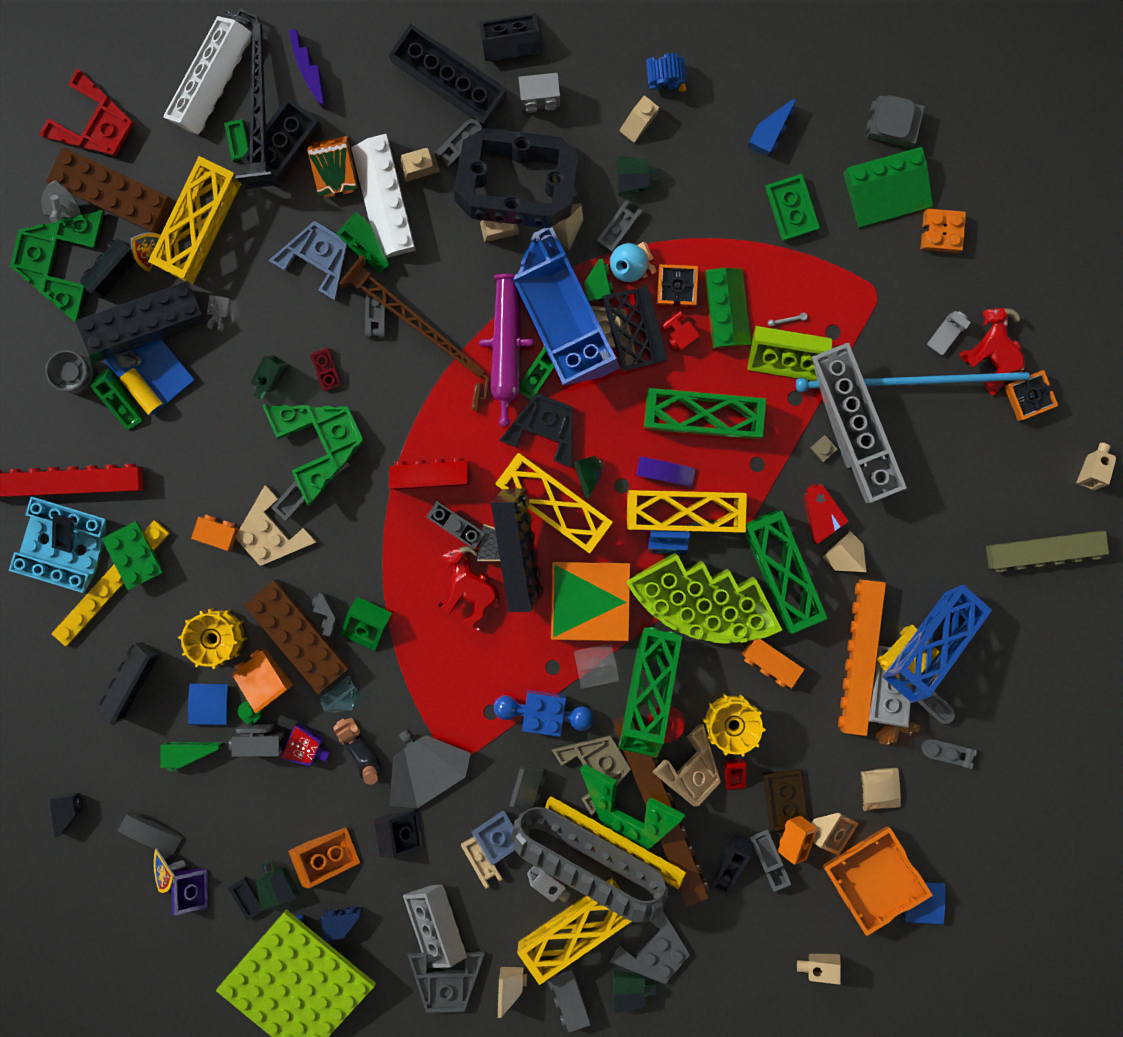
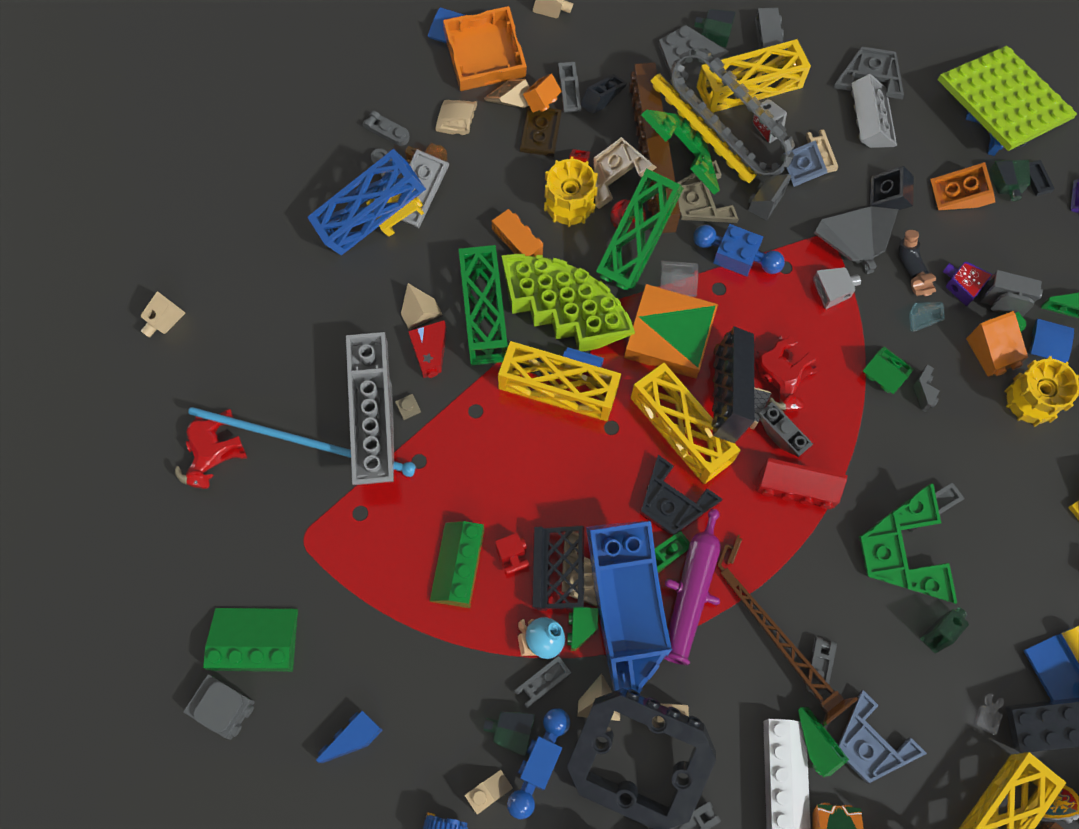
camera: 170 degrees left, 20 degrees down
(215, 533) = (1024, 491): orange brick -> none
(263, 537) = (974, 475): tan wing -> none
(297, 636) = (958, 376): reddish brown brick -> none
(325, 369) = (883, 622): dark red slope -> none
(338, 923) = (959, 136): dark blue slope -> none
(419, 164) = (740, 812): tan torso -> none
(436, 701) = (835, 285): none -> light grey torso
(510, 987) = (820, 50): tan slope -> none
(588, 473) = (643, 442): clear green slope -> none
(601, 156) = (540, 764): none -> blue brick
(665, 471) = (567, 425): dark purple slope -> none
(673, 278) = (509, 598): piece -> none
(755, 417) = (523, 451): green piece -> none
(786, 352) = (412, 503): lime slope -> none
(792, 207) = (358, 648): green plate -> none
(803, 316) = (384, 535): light grey hinge -> none
(862, 657) = (435, 221): orange brick -> none
(943, 230) = (214, 578): orange piece -> none
(948, 332) = (249, 478): light grey bracket -> none
(1030, 396) = (194, 392): piece -> none
(1047, 550) = (236, 261): olive brick -> none

